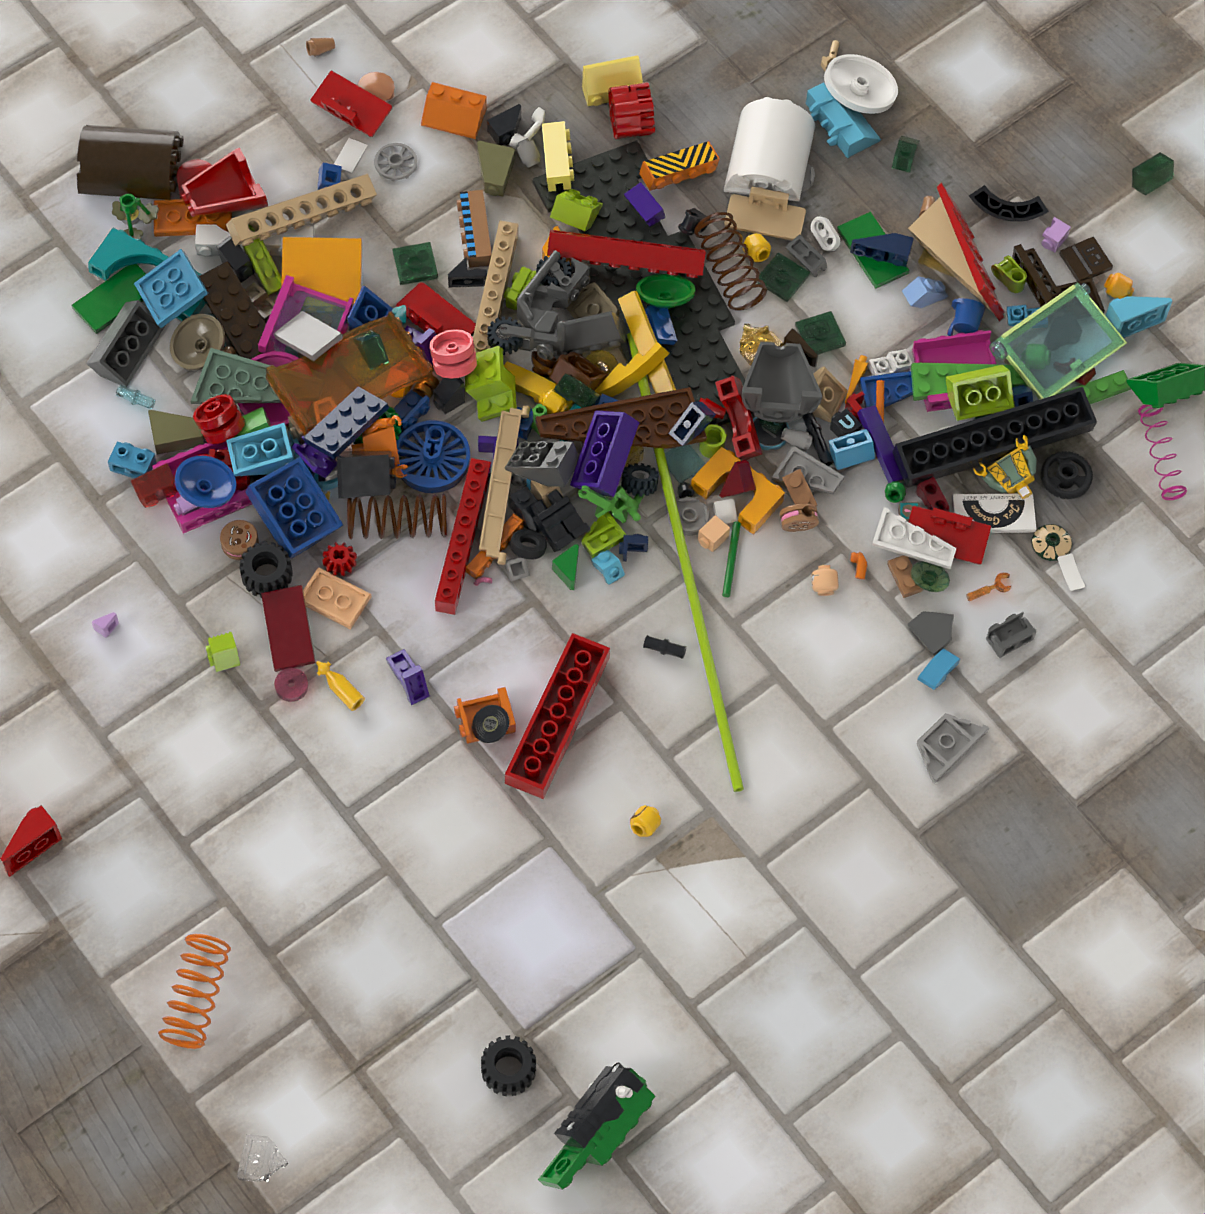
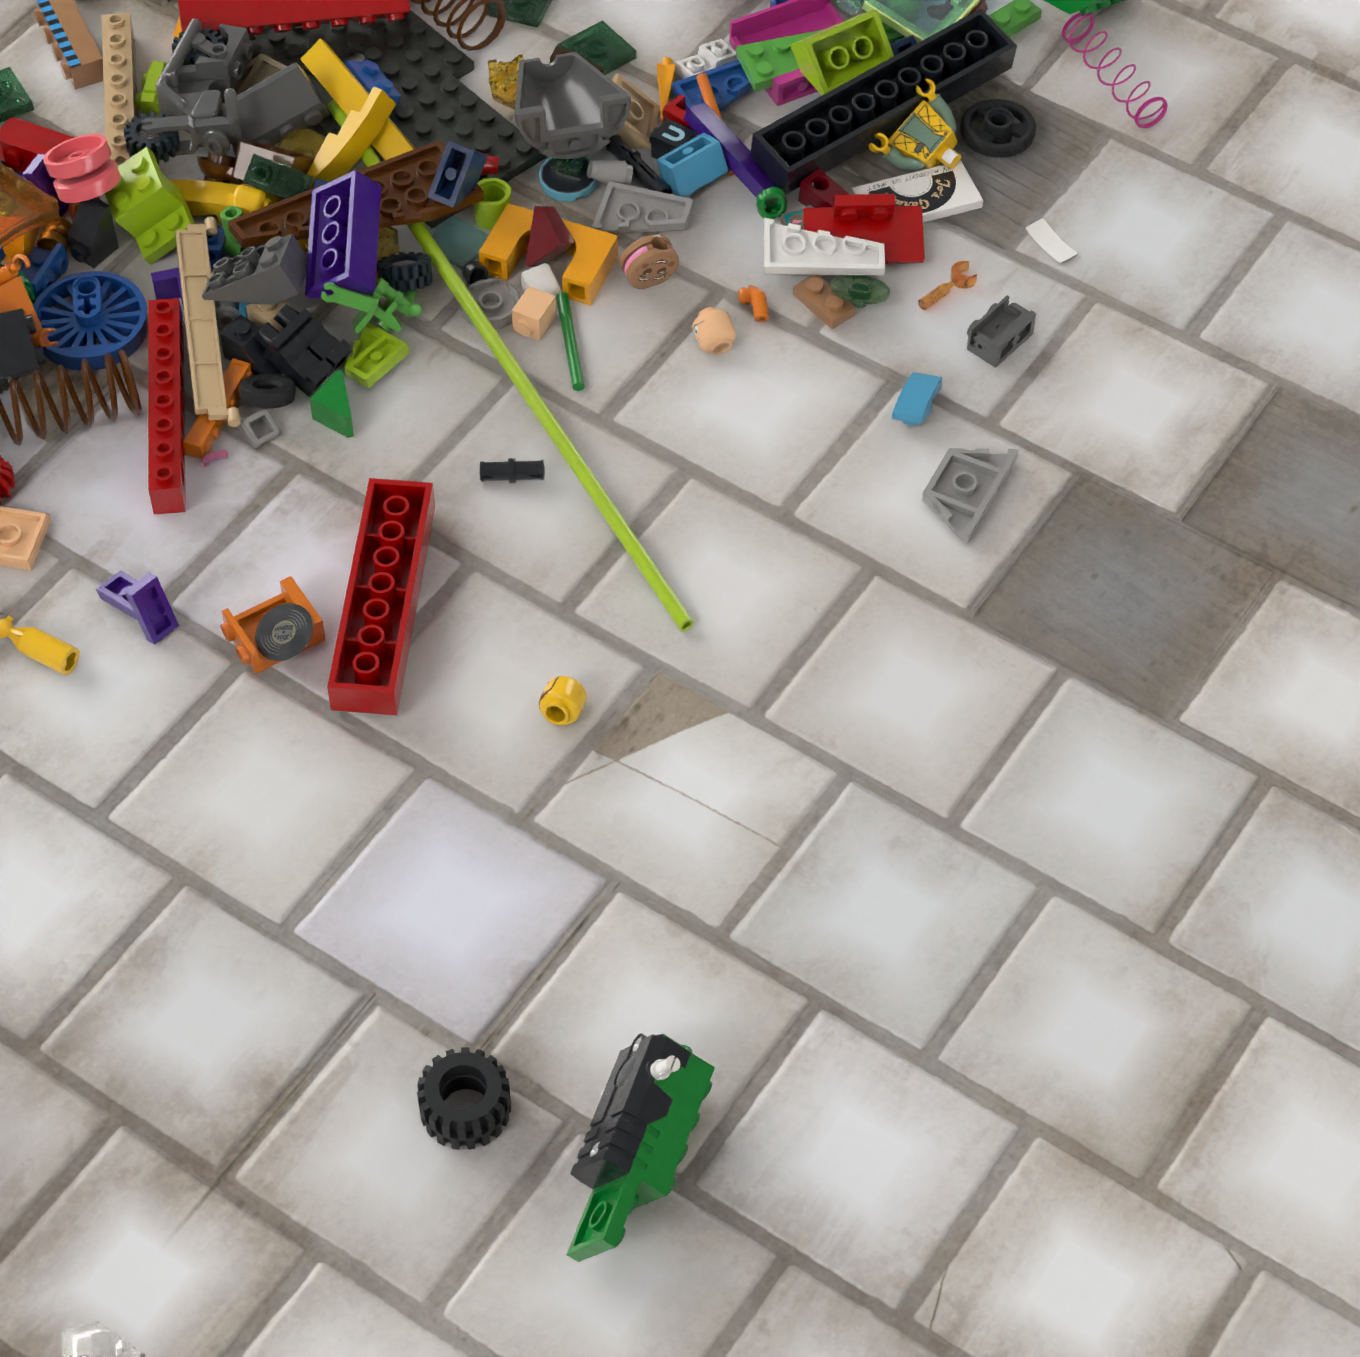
camera: 15 degrees left, 10 degrees down
(466, 278) = (70, 97): black slope -> none
(609, 566) = (396, 389): medium azure bracket -> none
(633, 543) = (422, 354): dark blue bracket -> none
(665, 290) = (366, 41): green dish -> none
(744, 433) = (519, 159): red arch -> none
(798, 488) = (630, 225): medium nougat plate -> none
(933, 629) = (888, 353): dark grey slope -> none
(1050, 549) = (1009, 213): tan dish -> none

